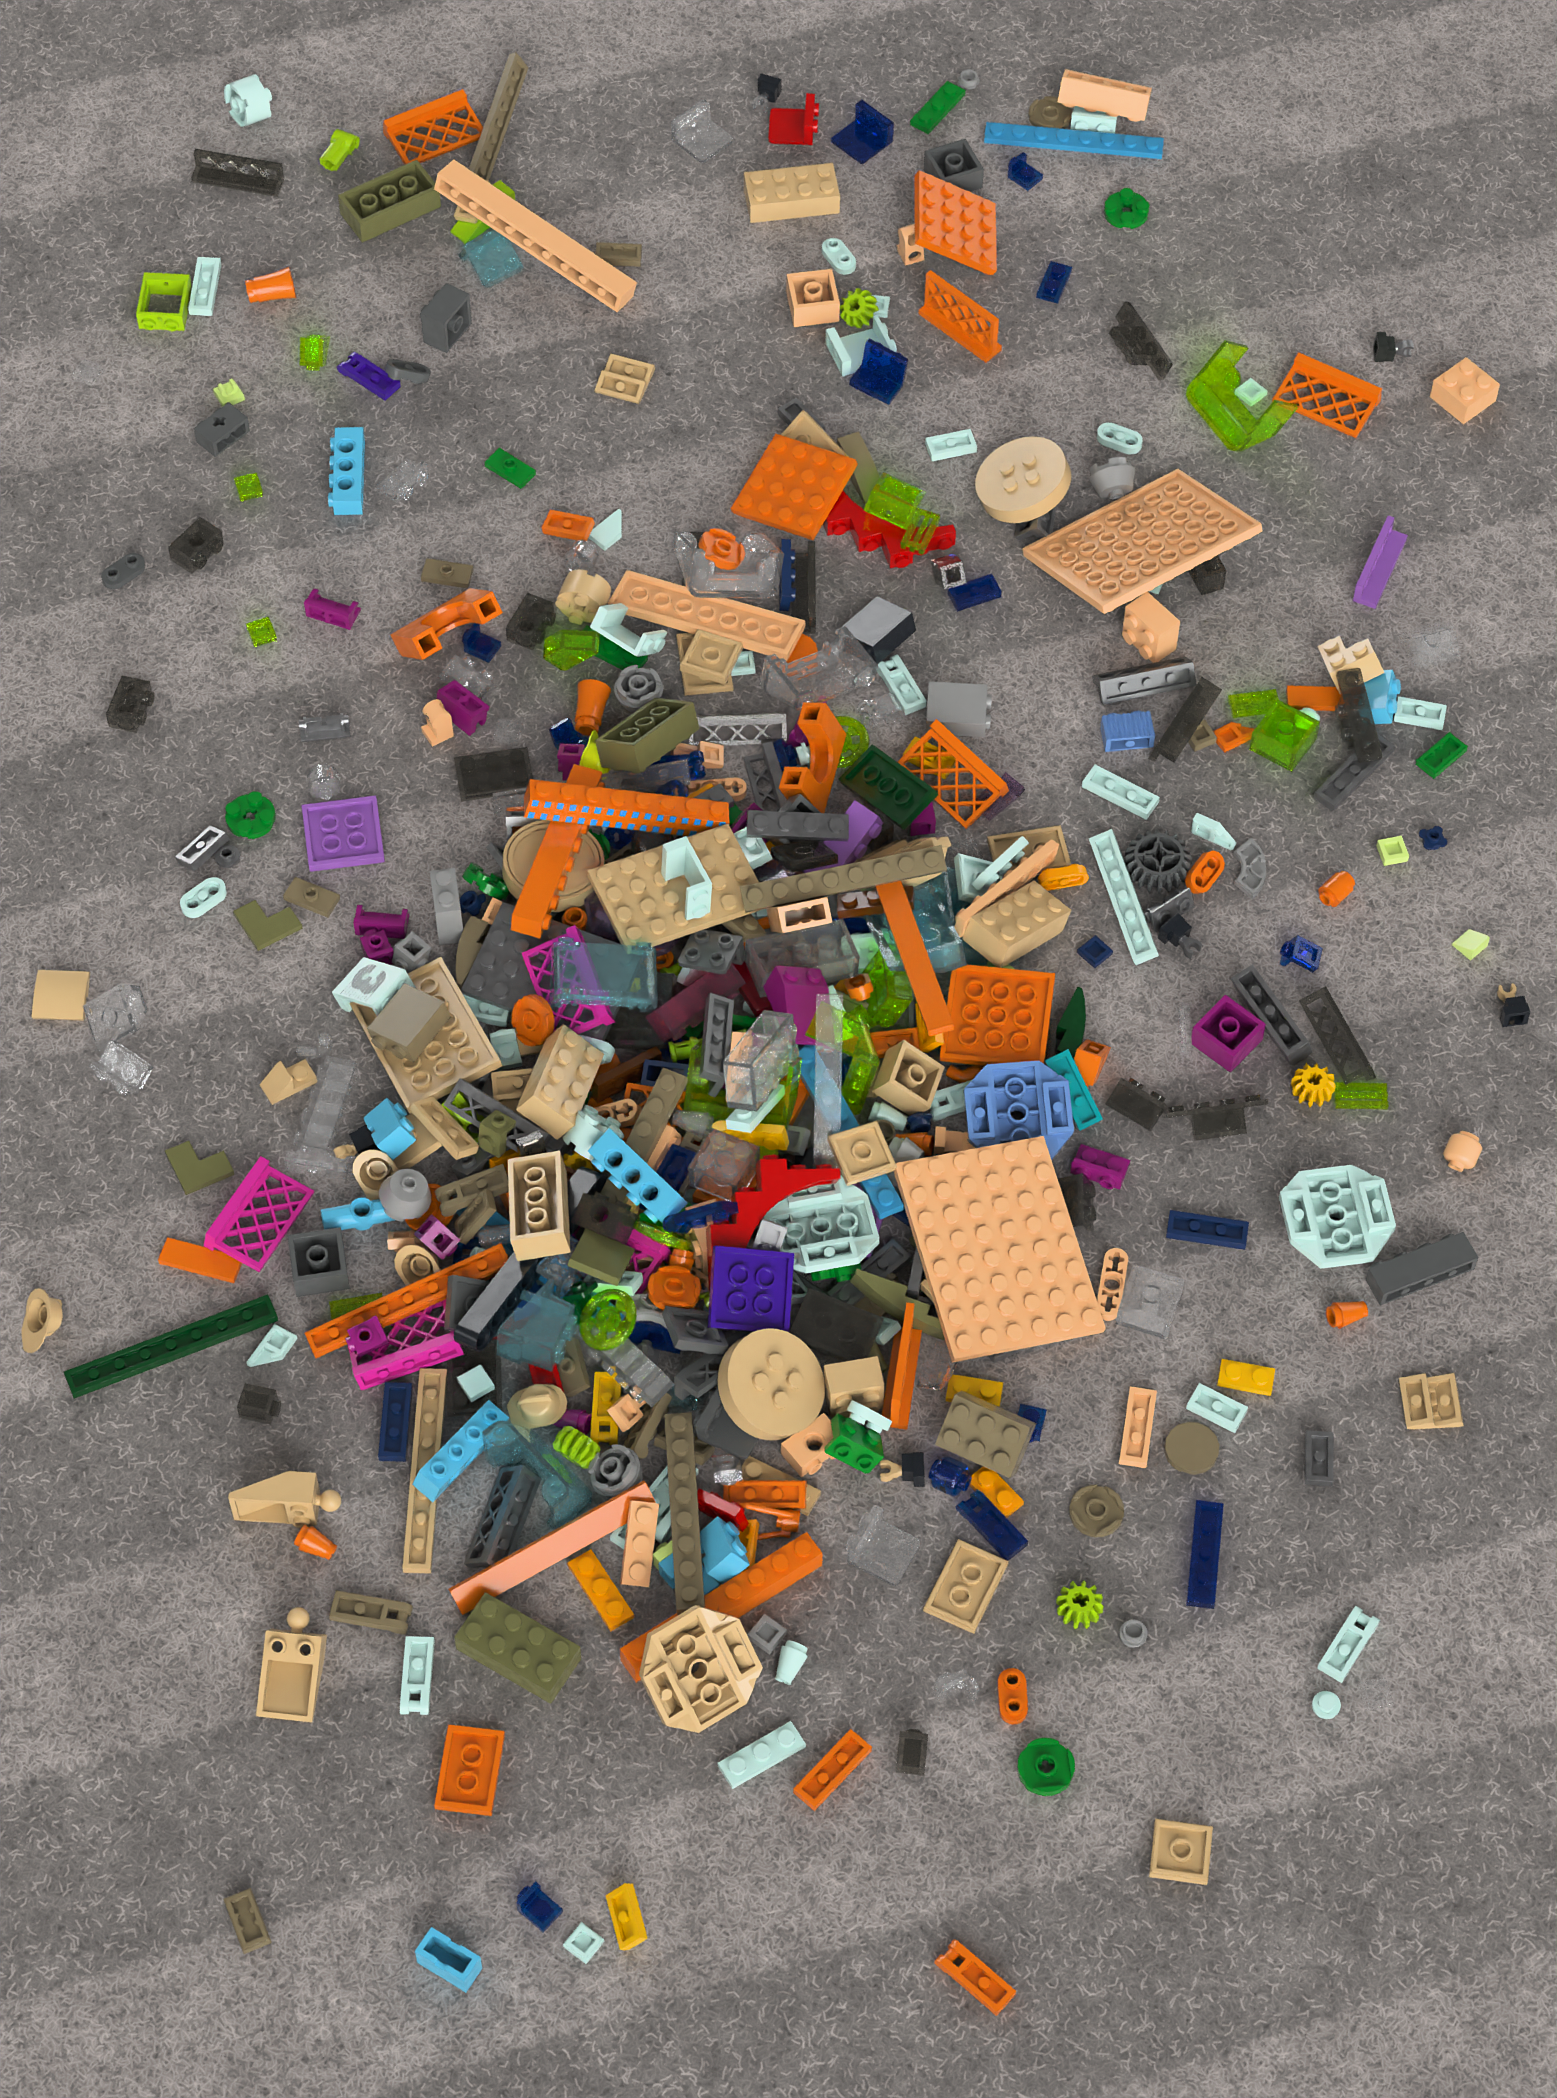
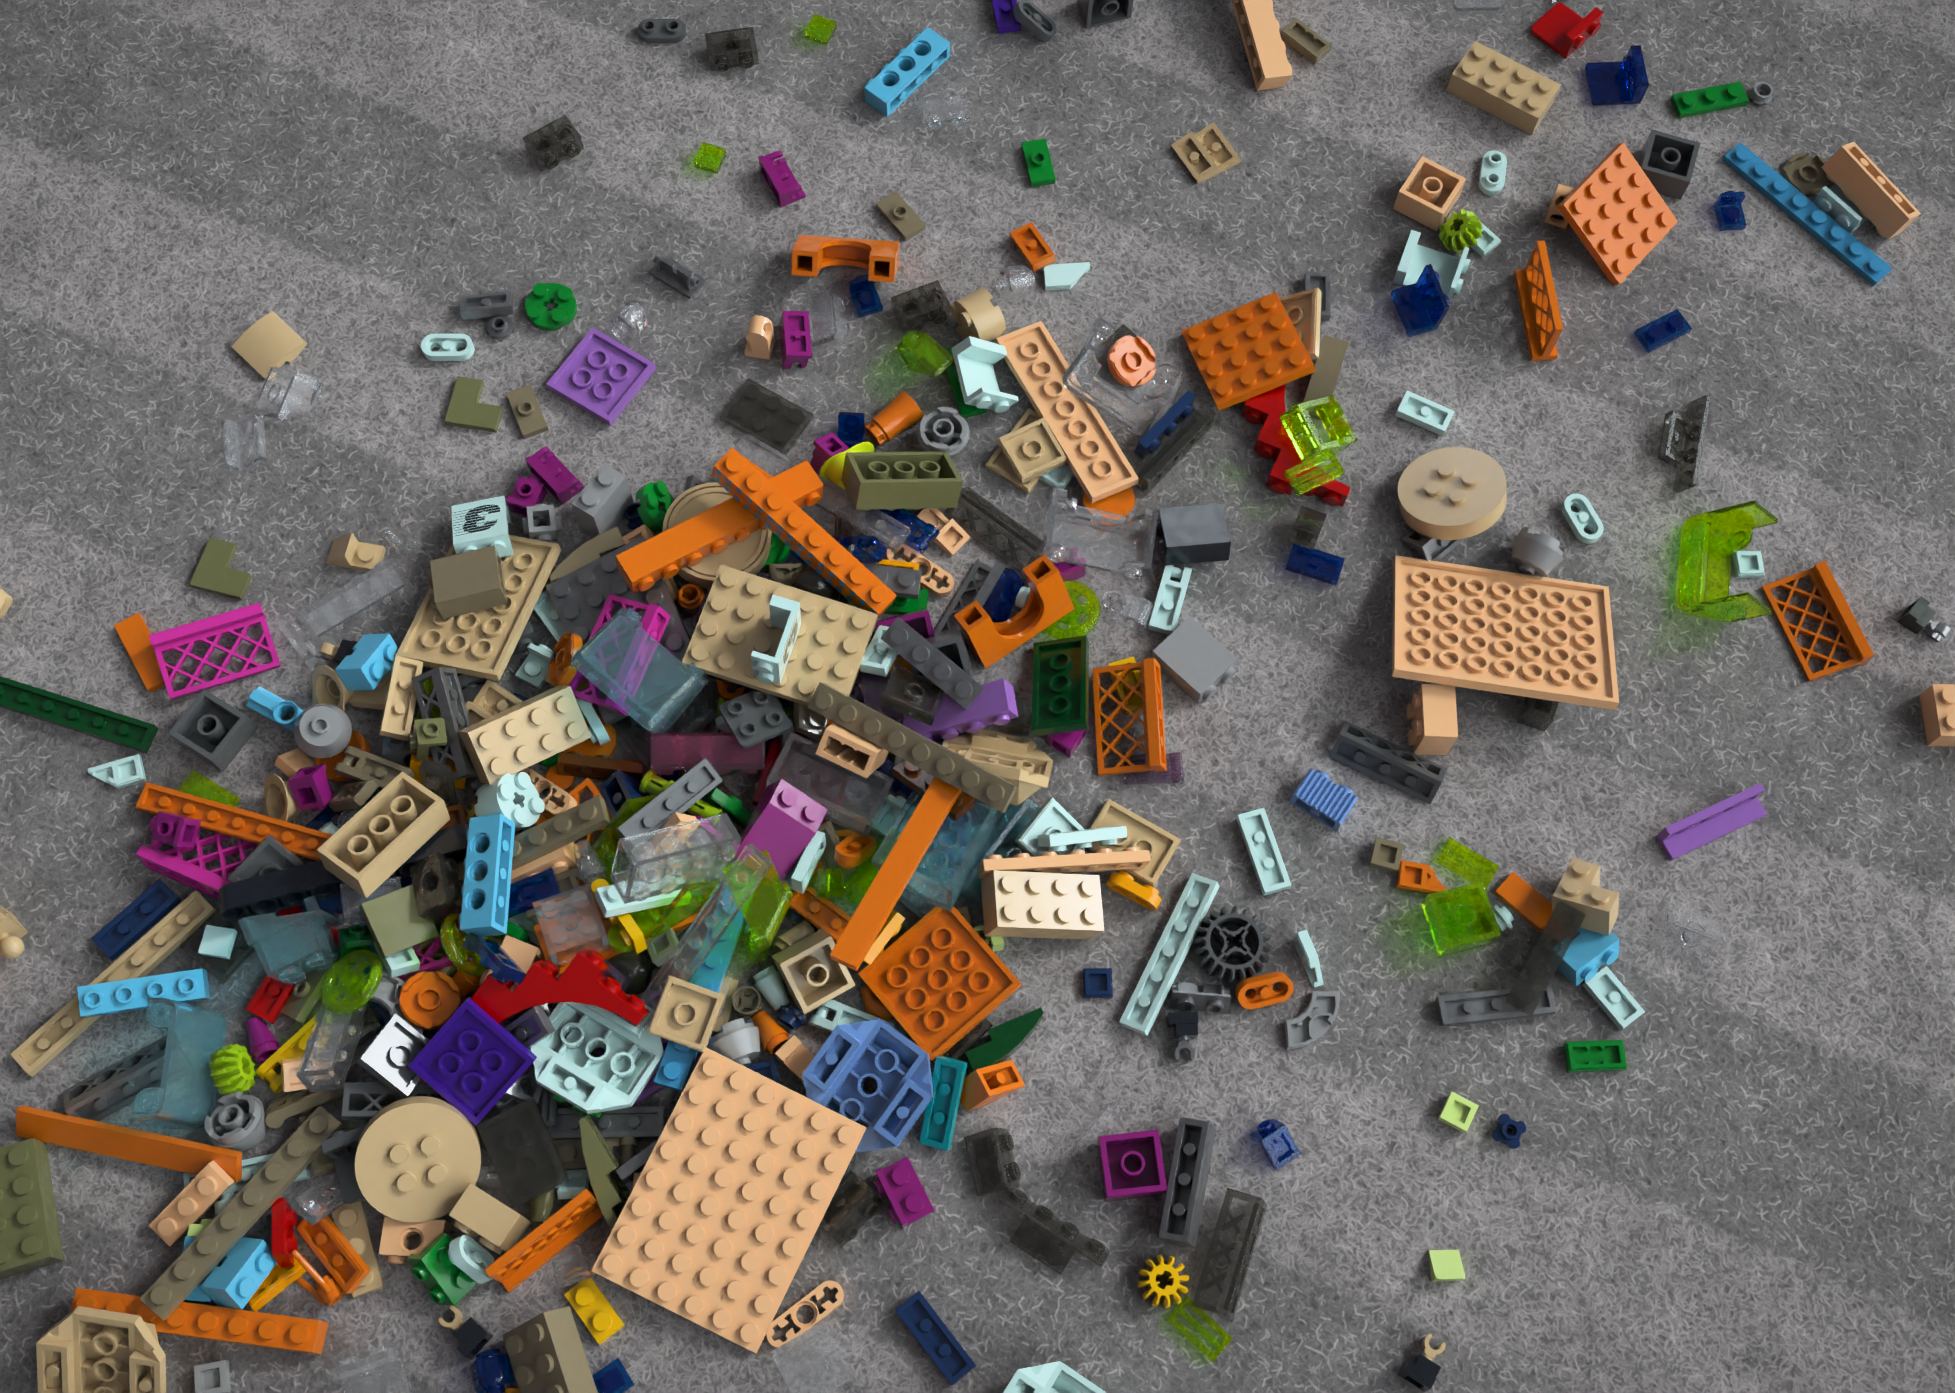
camera: 40 degrees right, 10 degrees up
(258, 1404) = (55, 813): clear smoke brick -> none
(537, 1406) = (246, 1004): tan piece -> none
(600, 1590) = (135, 1213): light orange plate -> none
(1126, 199) = (1803, 300): green plate -> none
(1186, 720) = (1384, 833): clear smoke fence -> none
(1336, 888) = (1368, 1106): orange brick -> none

